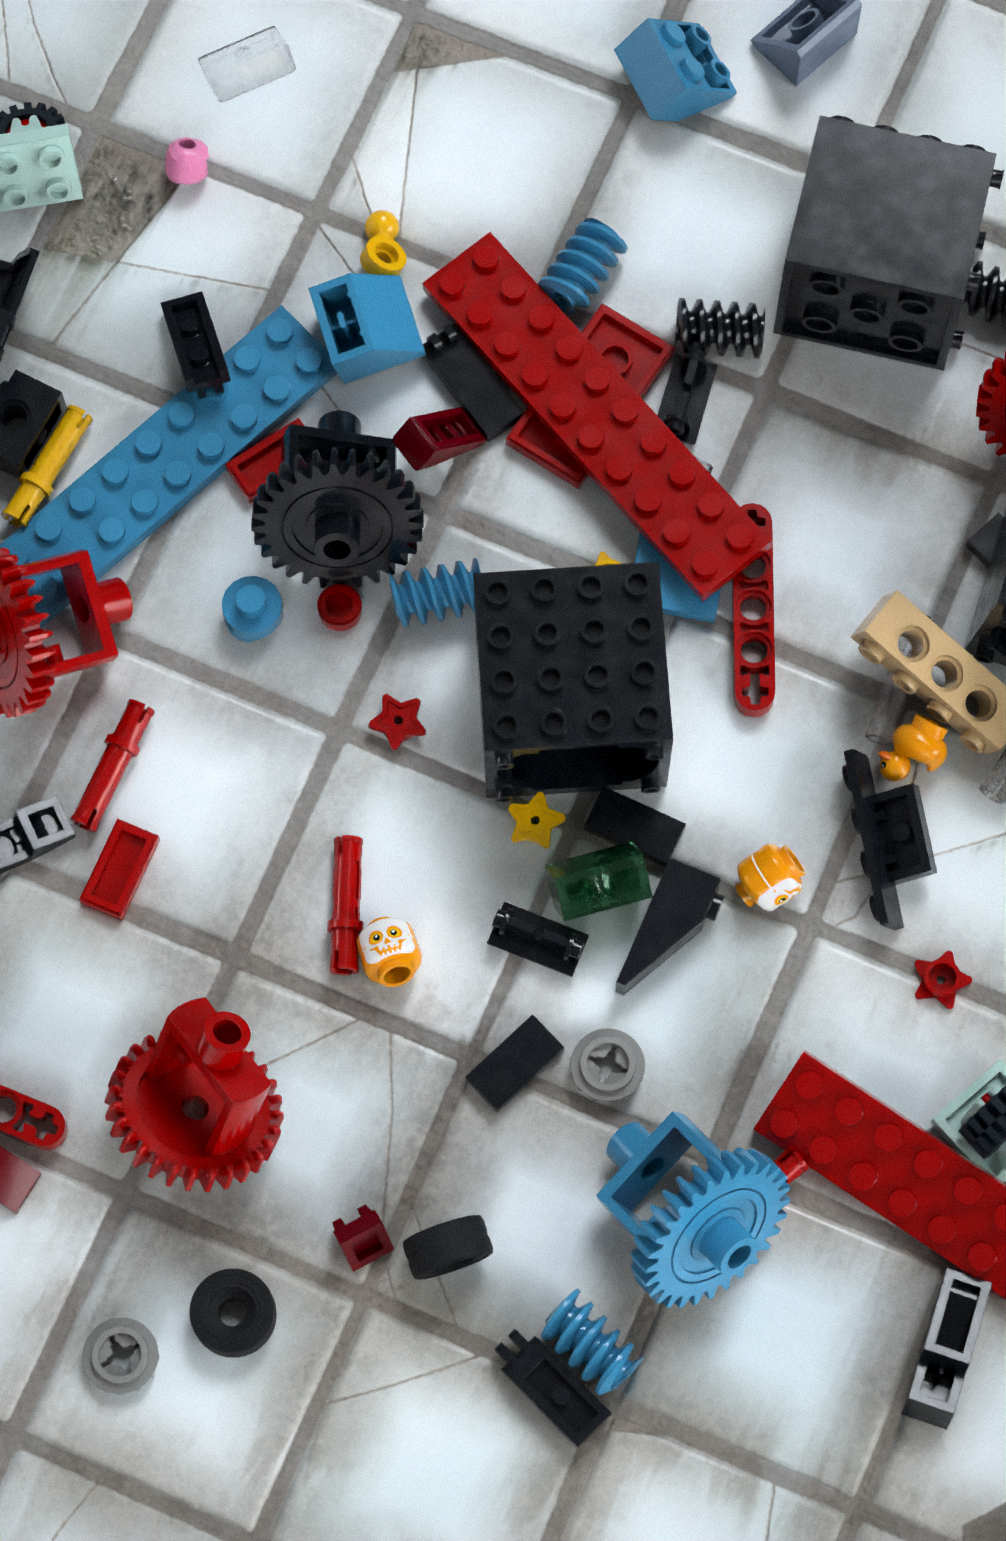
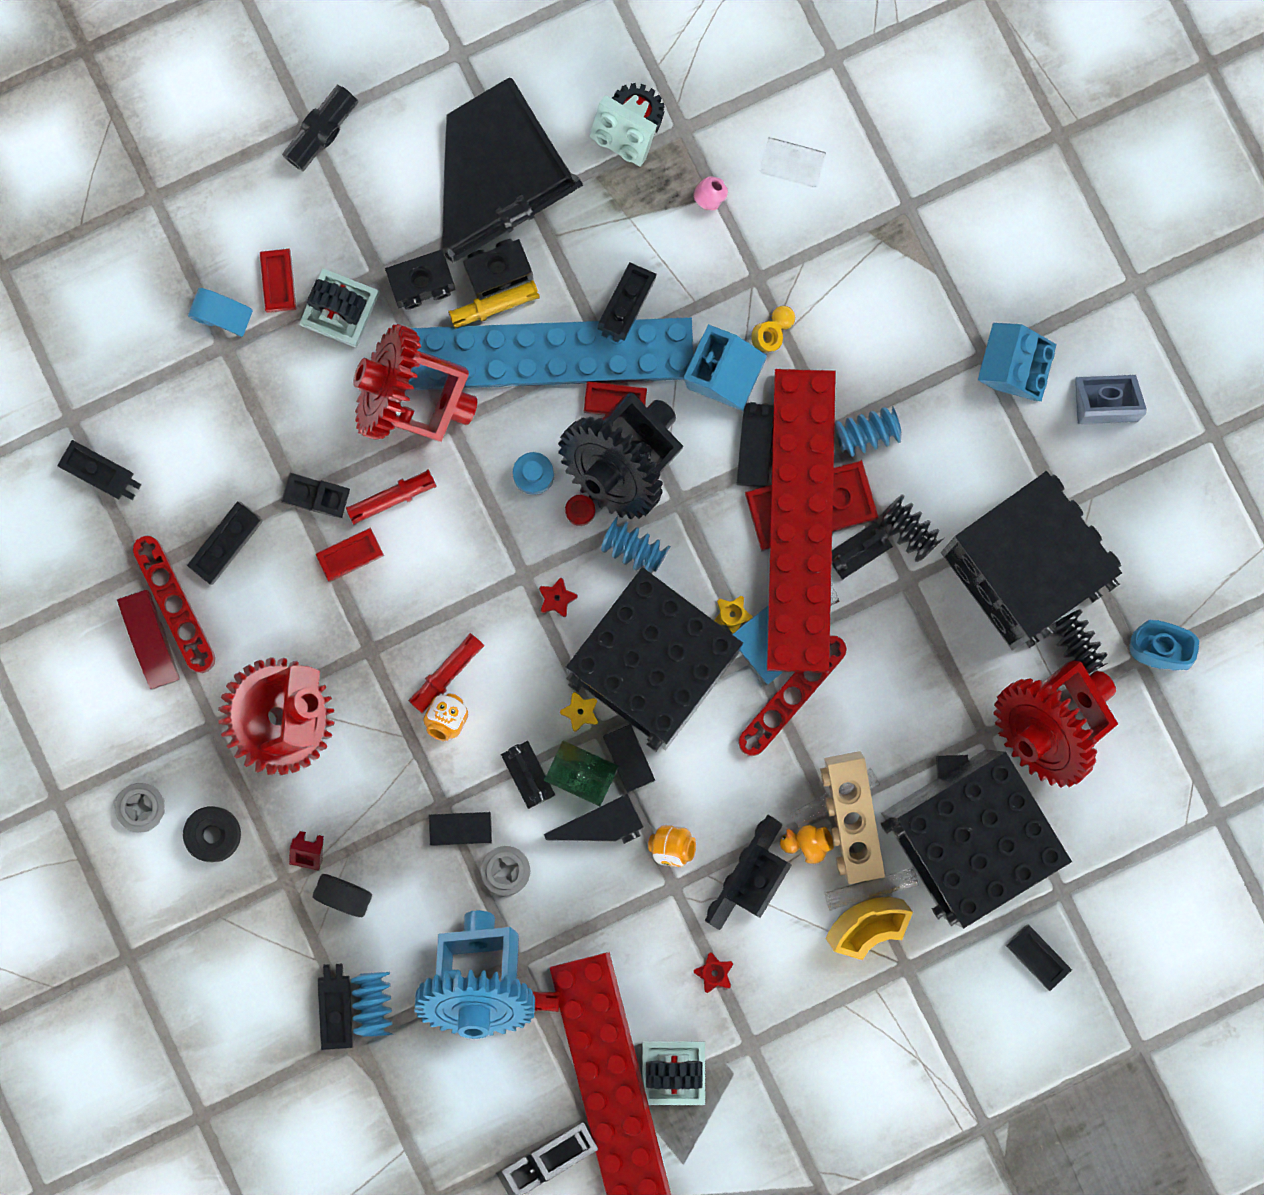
camera: 40 degrees right, 10 degrees up
(432, 440) = (692, 460): dark red slope -> none

